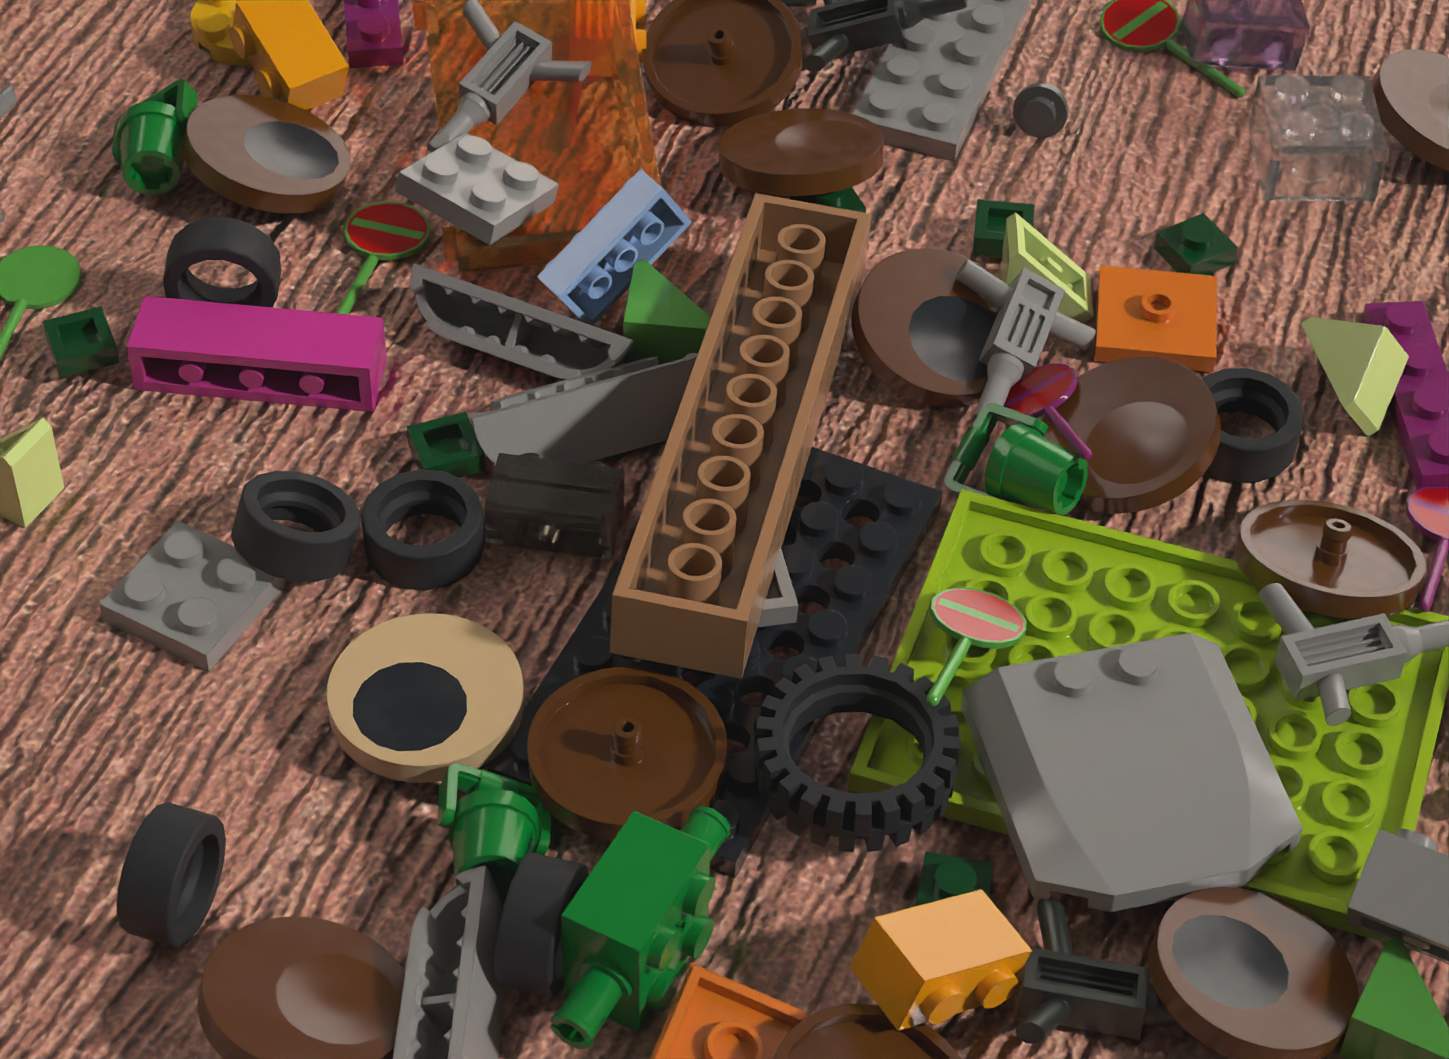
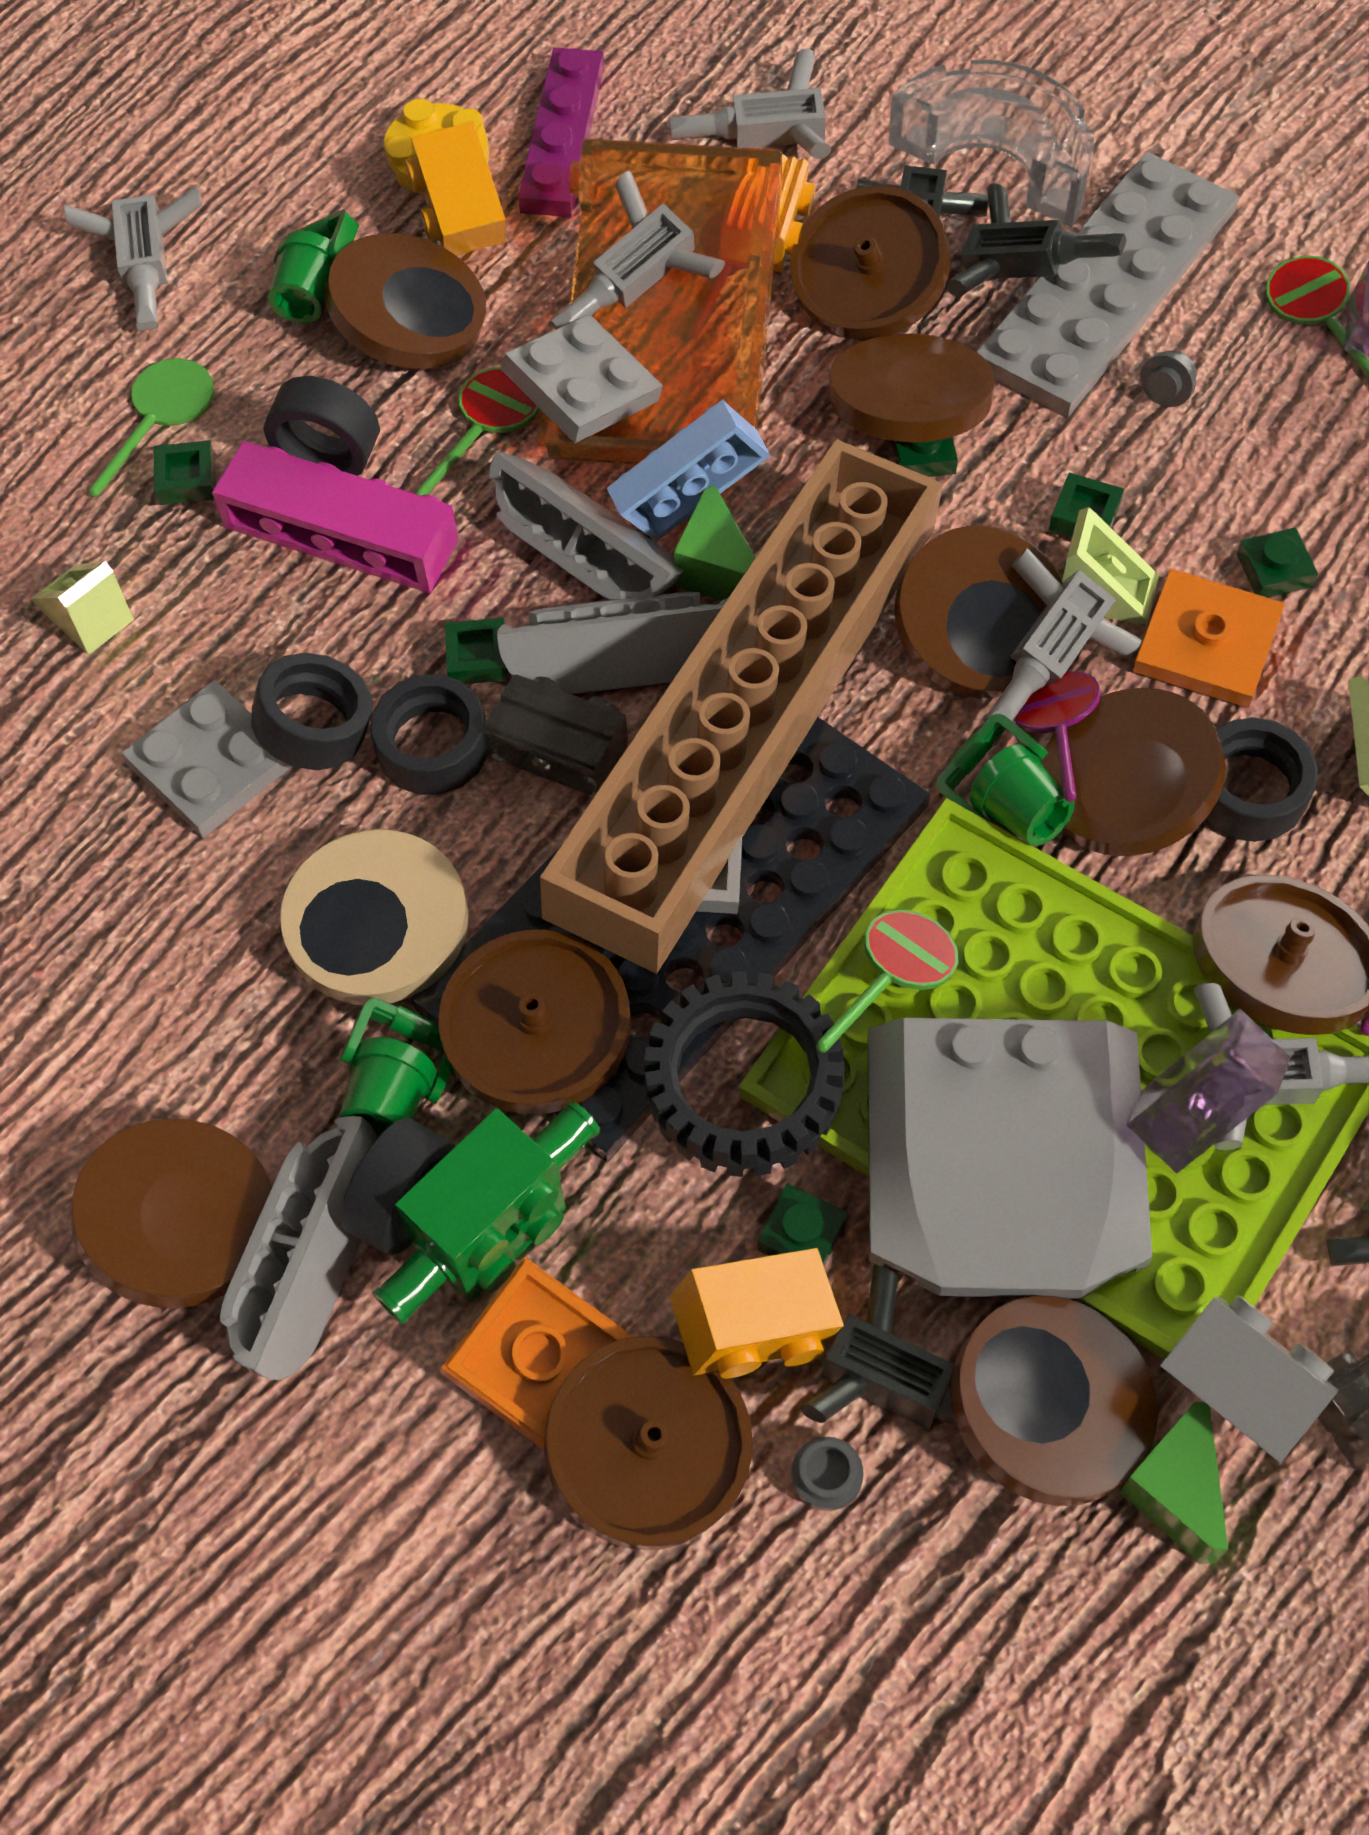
camera: 20 degrees right, 15 degrees up
(171, 874) = (89, 1057): black tyre -> none
(1309, 664) = (1209, 1091): none -> brick

